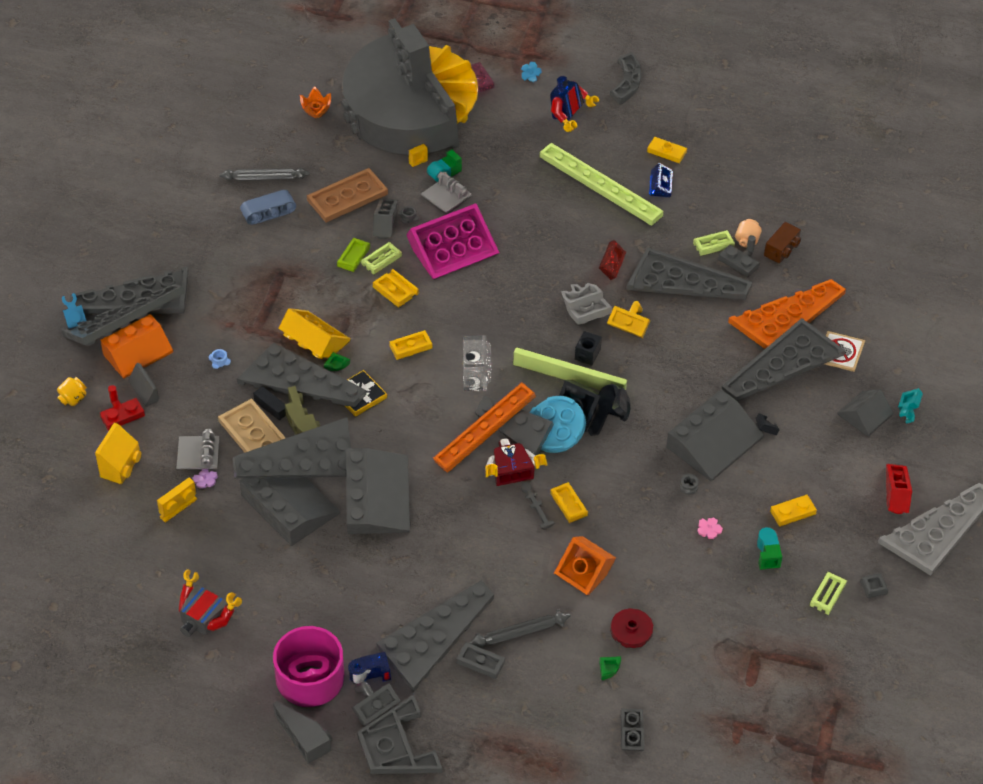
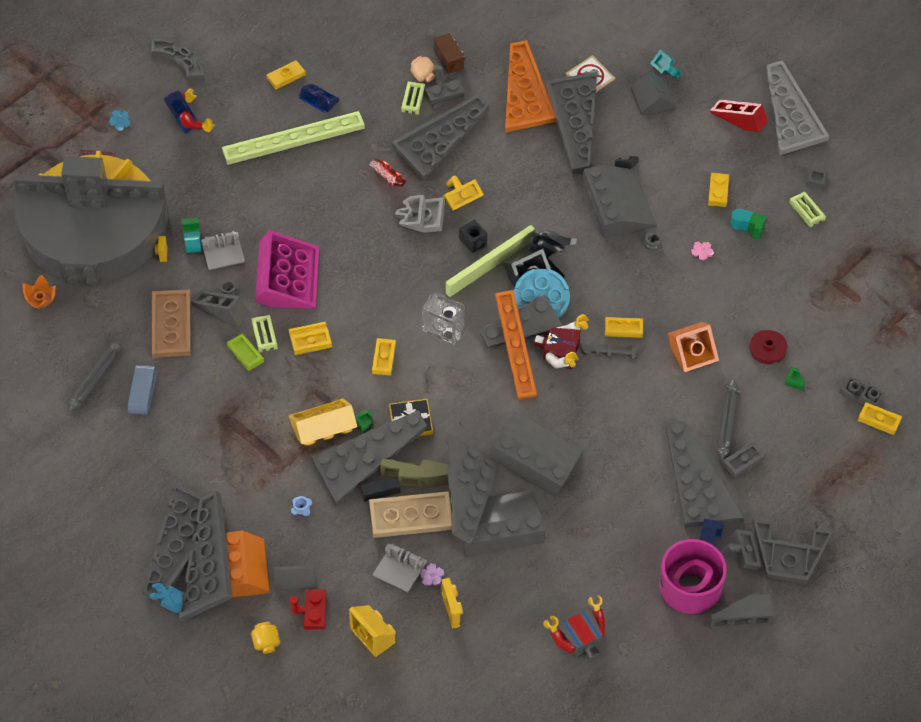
camera: 60 degrees left, 5 degrees up
(609, 757) = (879, 418): none -> yellow plate

